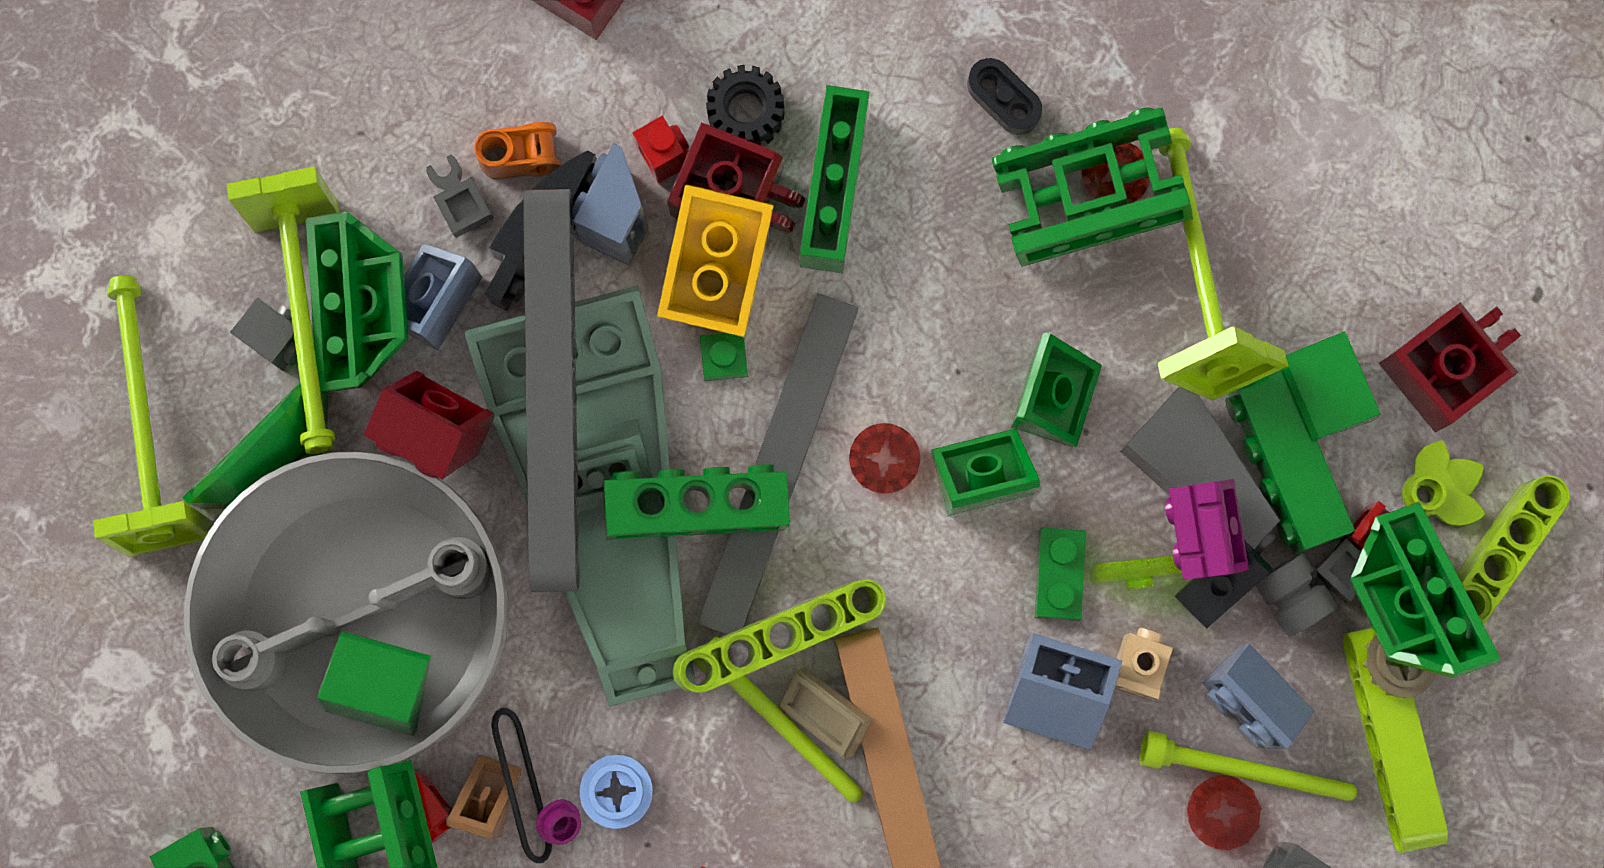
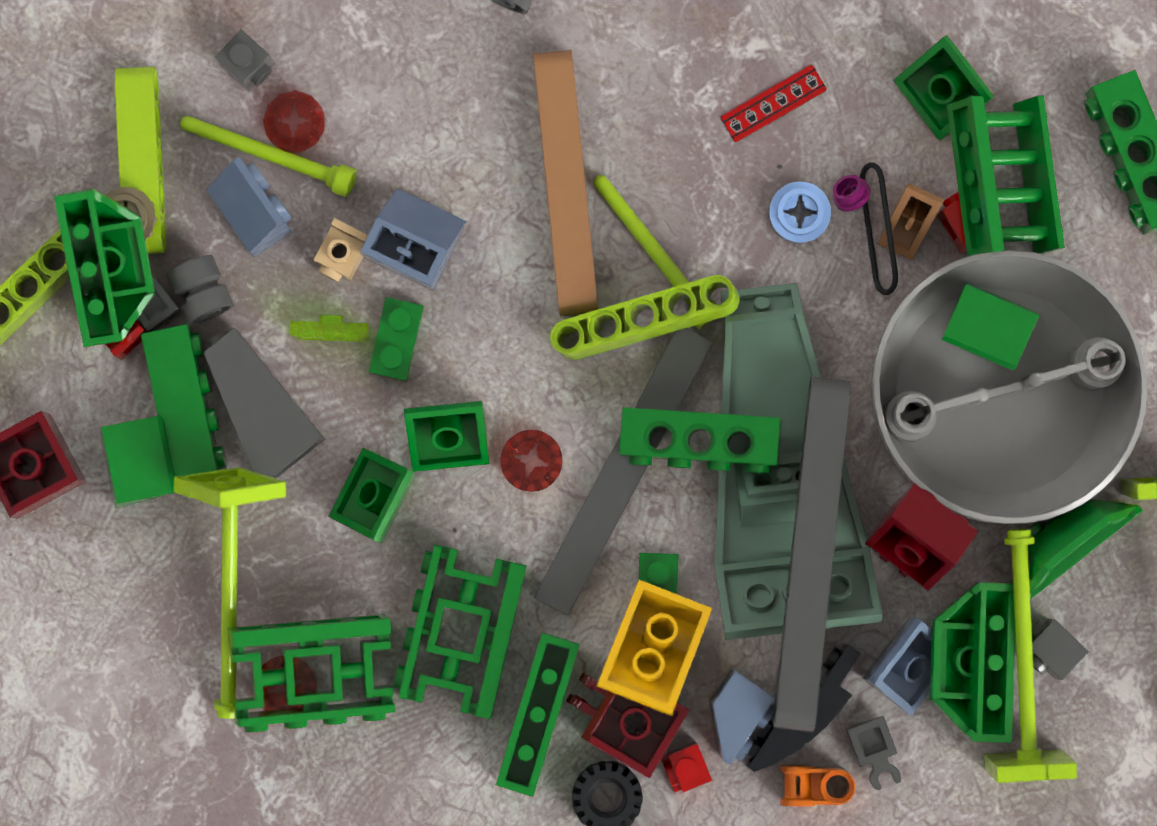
camera: 175 degrees left, 5 degrees up
(825, 713) = (615, 249): dark tan tile -> none
(899, 257) = (489, 637): none -> green fence
(1007, 95) = (370, 774): black plate -> none
(1207, 529) = (269, 349): magenta brick -> none
(1214, 595) = (260, 308): black plate -> none
(1447, 483) = (48, 366): lime plate -> none

